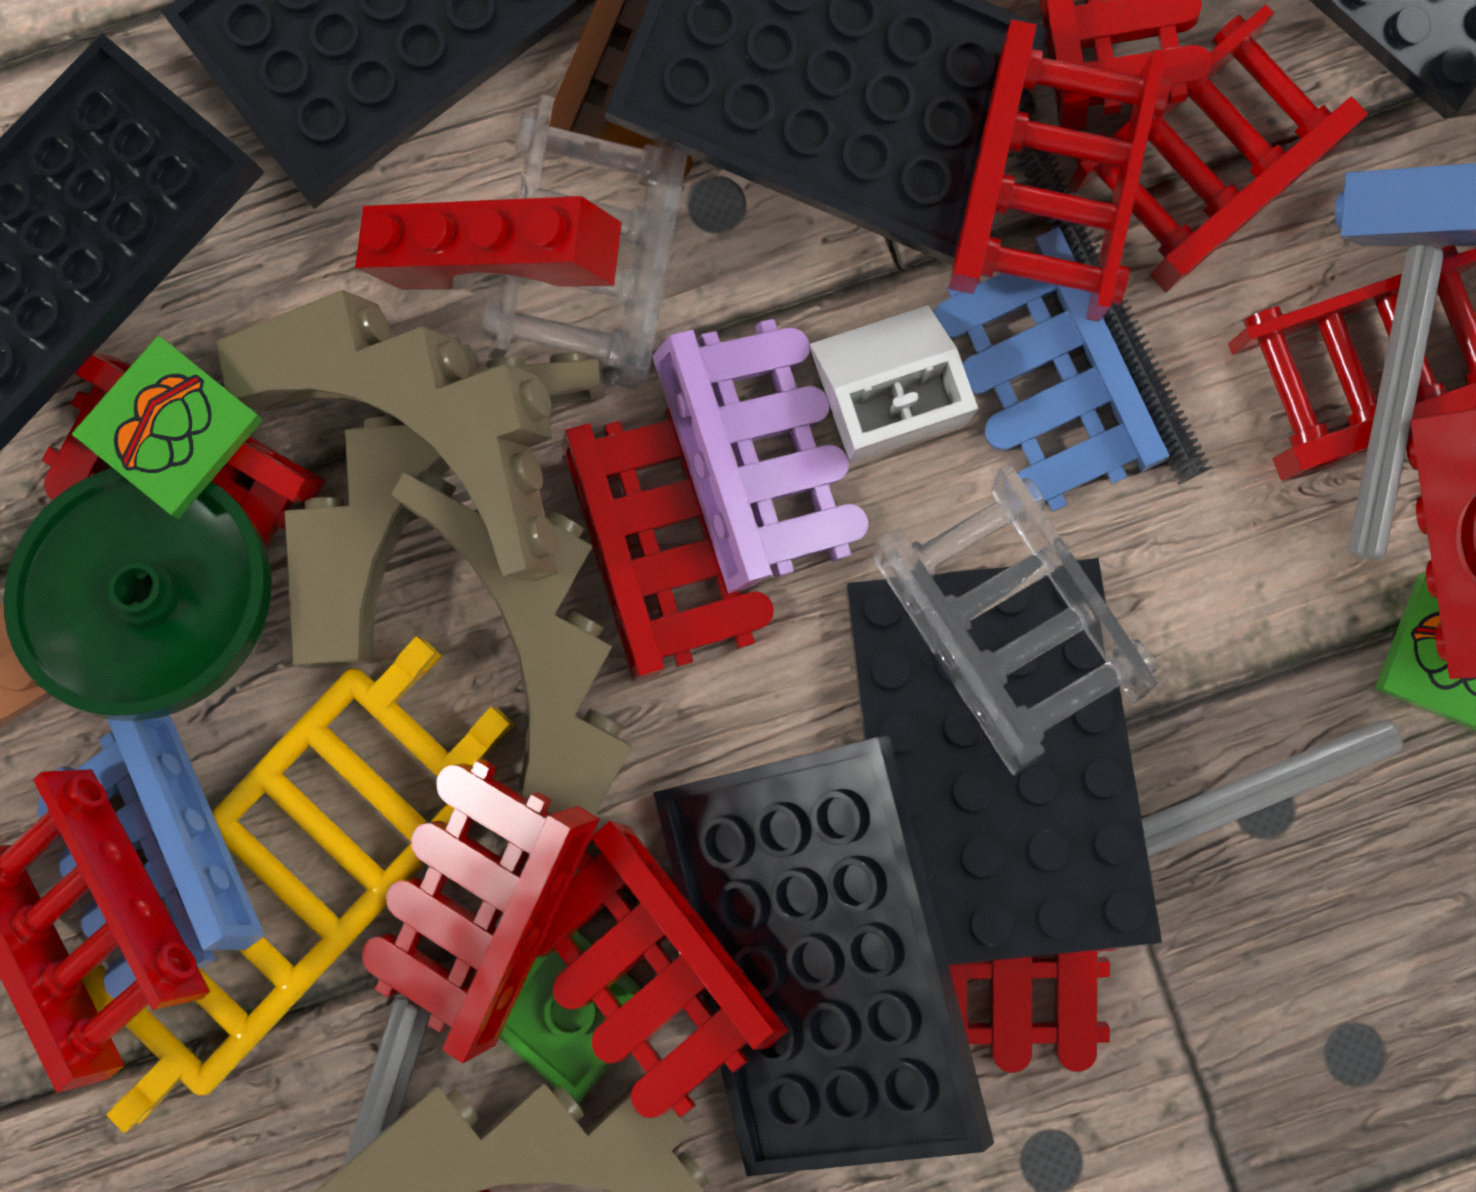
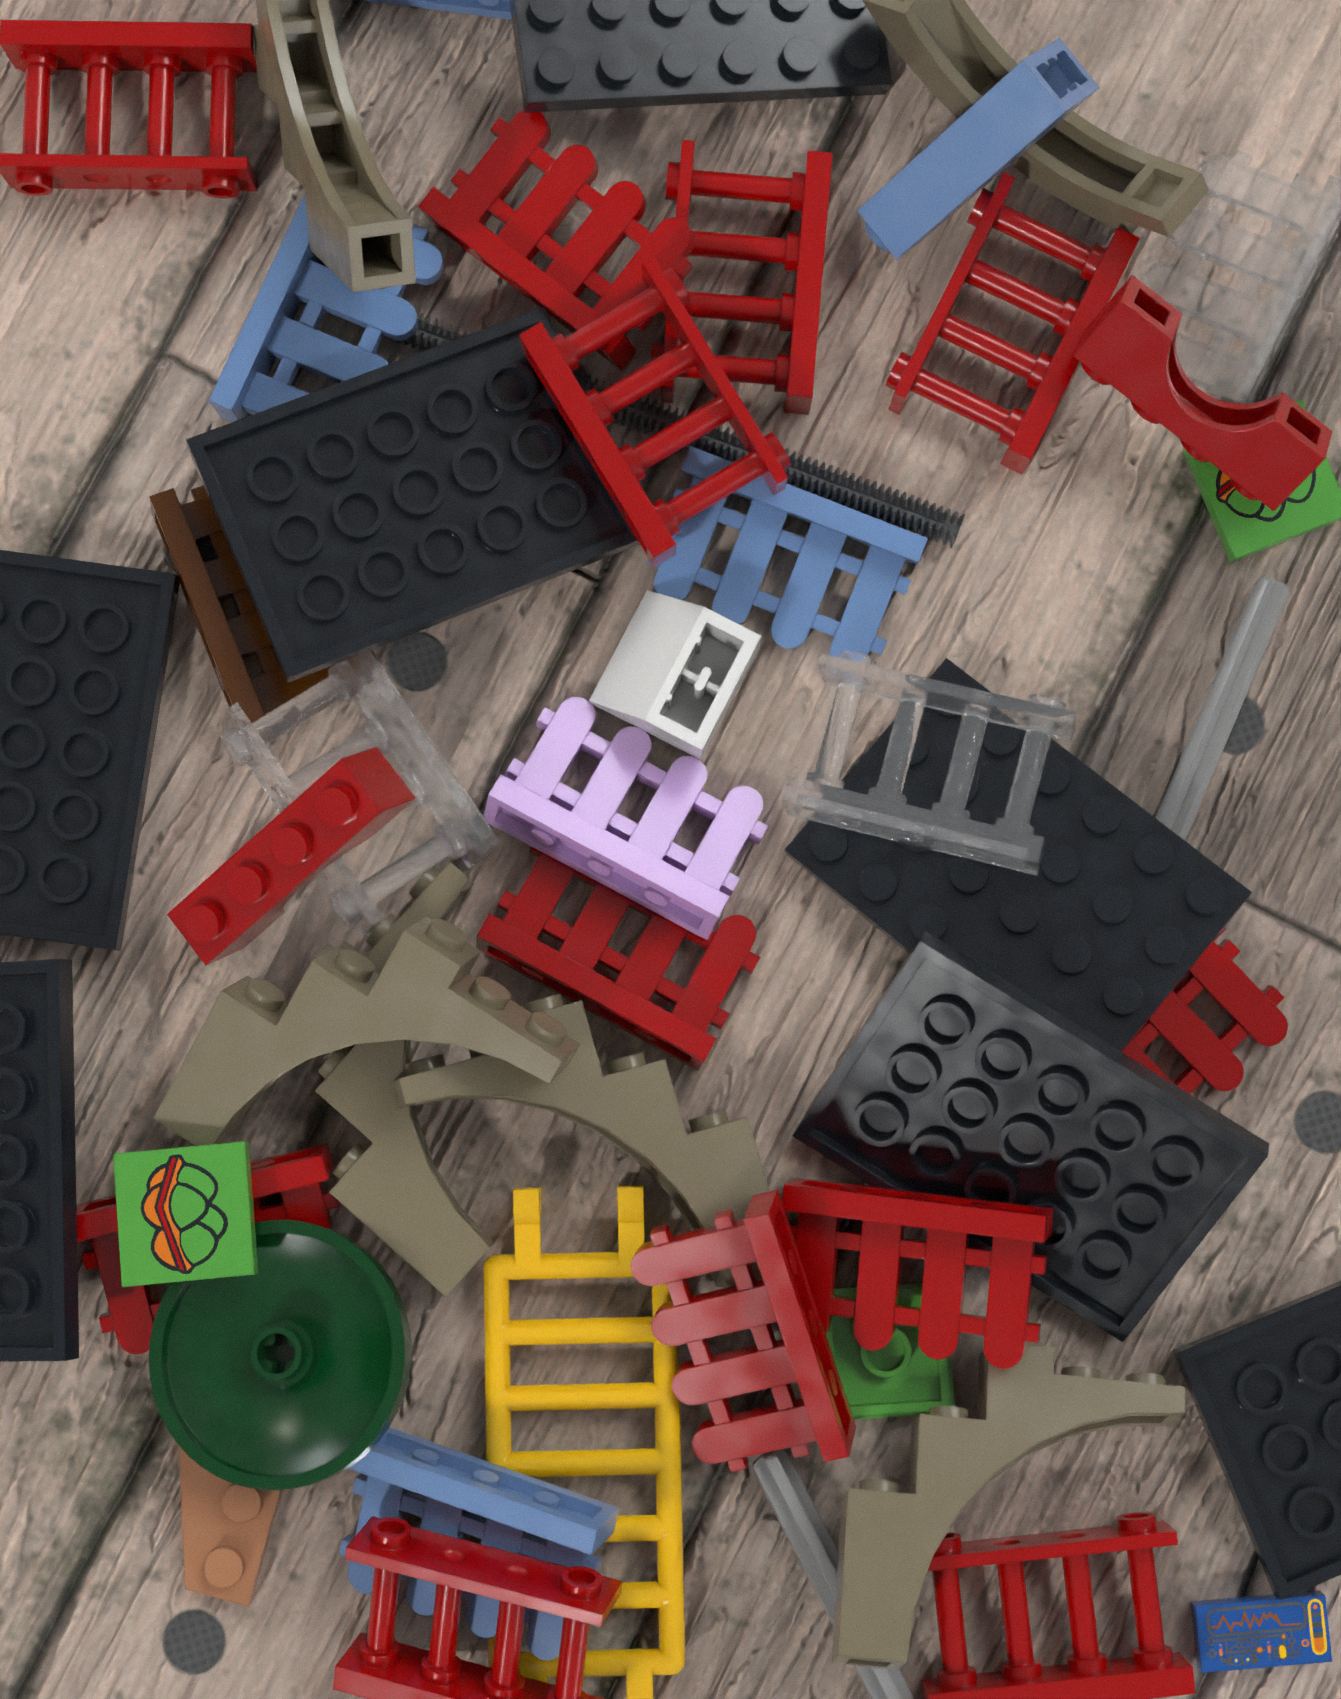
camera: 45 degrees left, 0 degrees up
(1395, 402) = (1050, 348): light grey axle -> none

